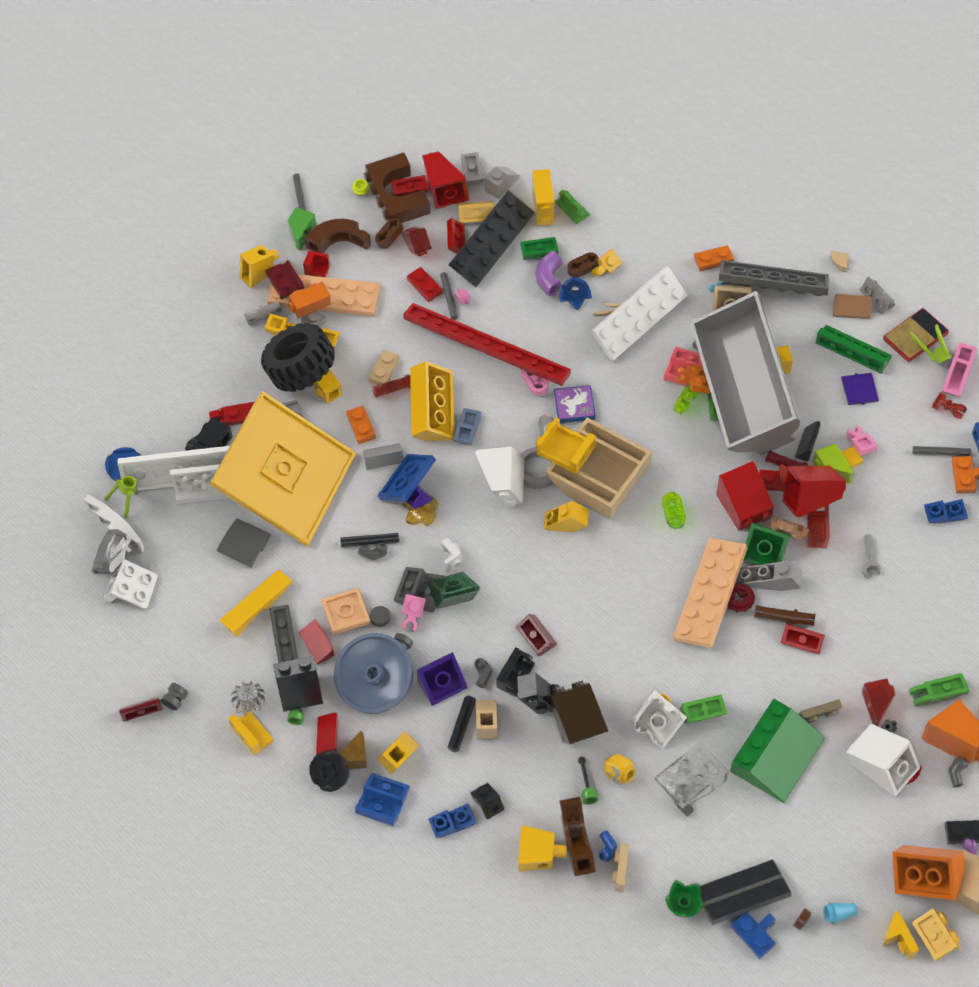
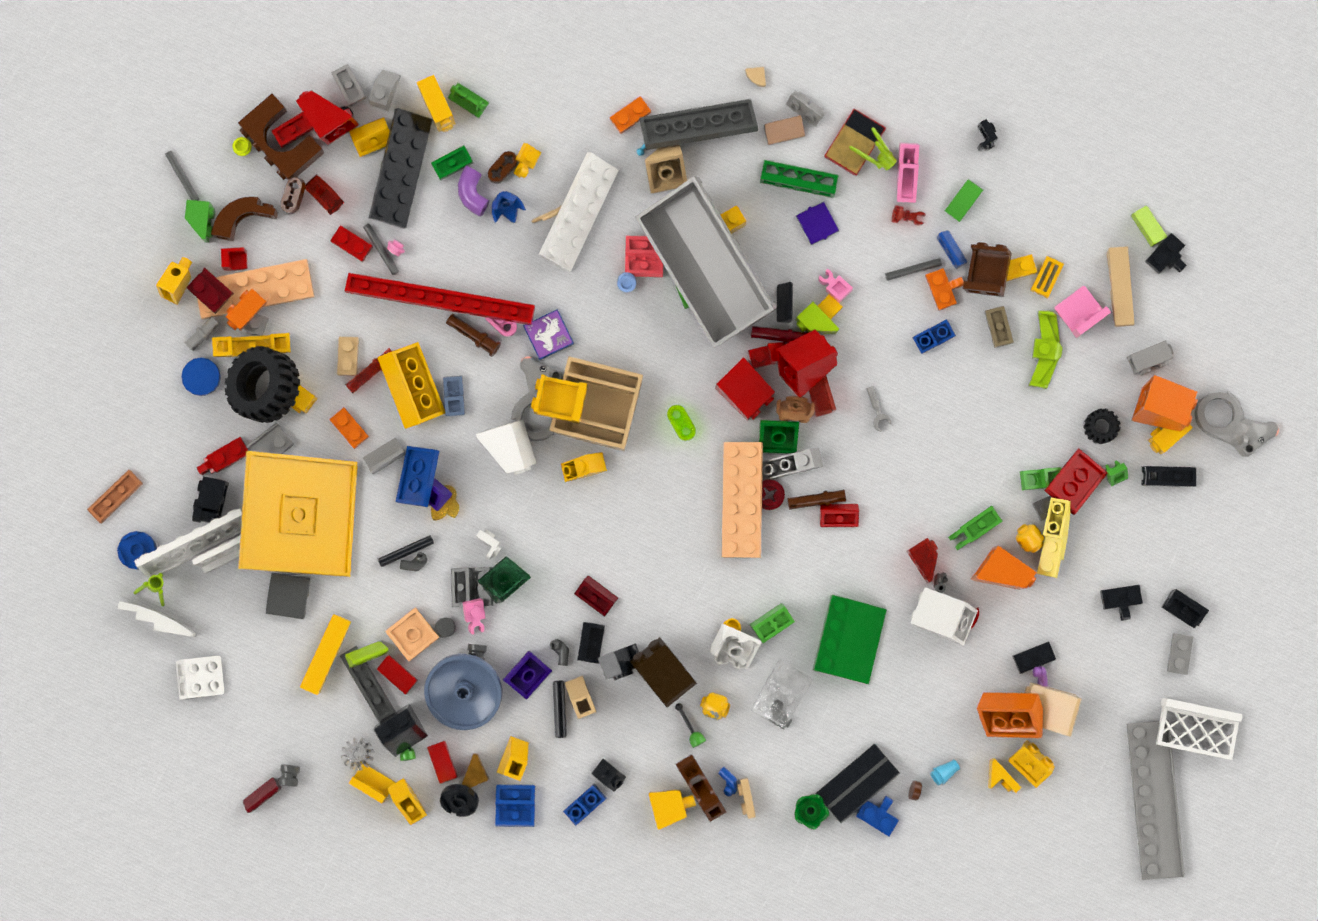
camera: 25 degrees left, 25 degrees up
(111, 551) = (169, 655): flat silver slope -> none
(125, 416) = (115, 496): none -> nougat tile
(246, 345) = (201, 376): none -> blue tile
(277, 758) = (406, 801): none -> yellow slope
(294, 614) = (366, 654): none -> lime slope
(455, 235) = (362, 177): red plate -> none
(510, 388) = (480, 339): none -> reddish brown pin
(663, 382) = (626, 282): none -> light blue tile
(683, 401) = (653, 301): clear neon green plate -> none
(695, 377) = (657, 272): orange plate -> none
(828, 709) = (881, 583): dark tan plate -> none
(955, 769) = (1009, 601): dark grey arm -> none

